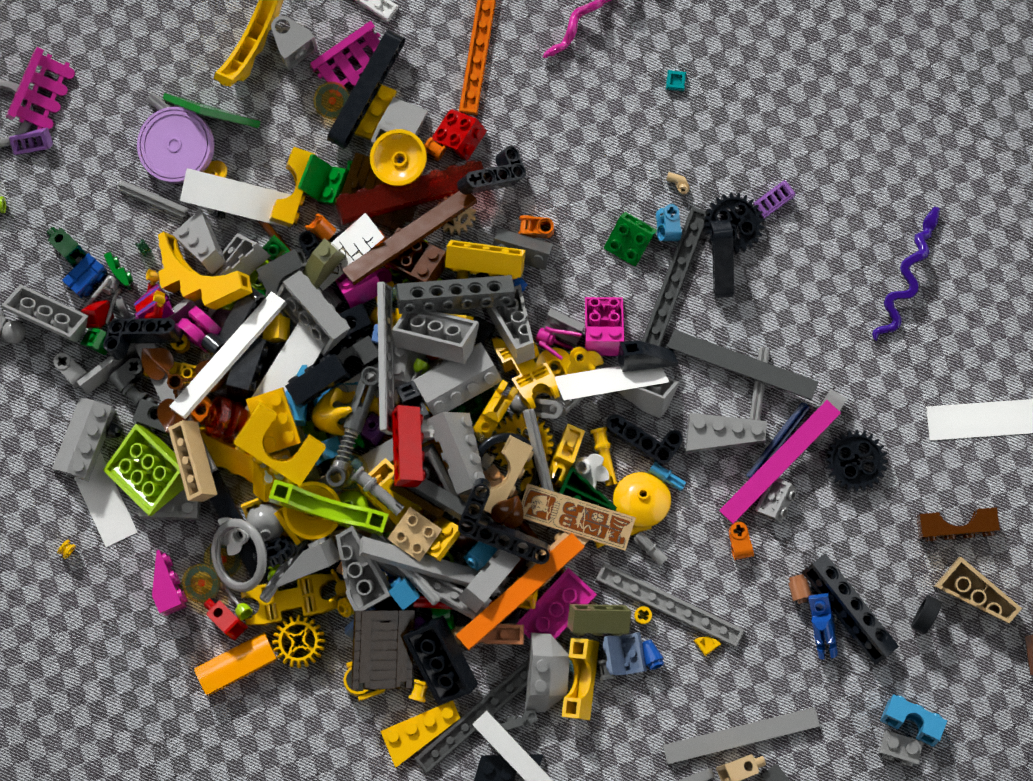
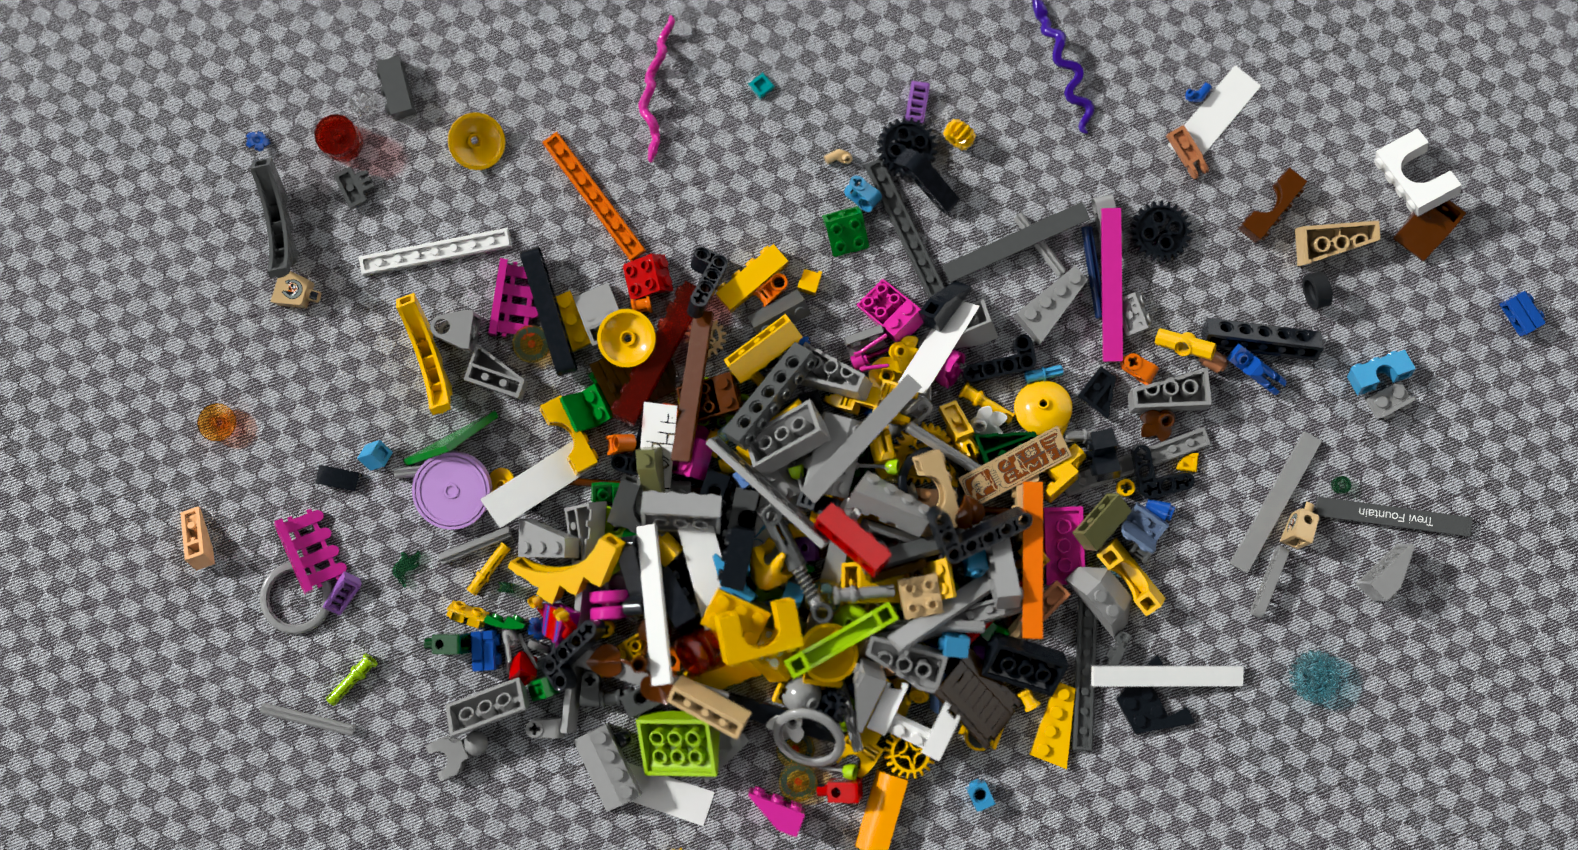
camera: 45 degrees left, 5 degrees up
(93, 165) = (405, 564): none -> clear green piece
(95, 232) = (459, 611): none -> yellow hinge
(108, 60) = (337, 477): none -> black slope
(133, 295) = (536, 627): none -> blue plant
(144, 223) = (488, 569): none -> yellow pin
(149, 70) = (375, 455): none -> dark azure panel
(284, 95) = (492, 374): none -> light grey wedge
(304, 597) = (931, 740): none -> white wedge
(308, 726) = (984, 802): none -> dark azure brick
(486, 384) = (861, 438): none -> light grey tile
(488, 427) = (890, 466): none -> hinge
(538, 204) = (750, 278): none -> yellow brick
(568, 249) = (809, 282): none -> yellow panel
(603, 405) = (951, 369): none -> dark pink cylinder
(608, 559) = (1064, 473): none -> yellow plate
(651, 569) = (1102, 451): none -> black brick
(667, 625) = (1150, 479): none -> black beam
(694, 528) = (1099, 391): none -> black wing
(710, 593) = (1154, 424): none -> reddish brown plate
(743, 582) = (1180, 393): none -> light grey wedge
(780, 250) = (959, 134): none -> yellow gear
(790, 556) = (1194, 345): none -> yellow piece
(807, 774) = (1346, 481): none -> clear green bush
(935, 423) = (1187, 151): none -> nougat hinge
(985, 393) = (1198, 96): none -> blue arm

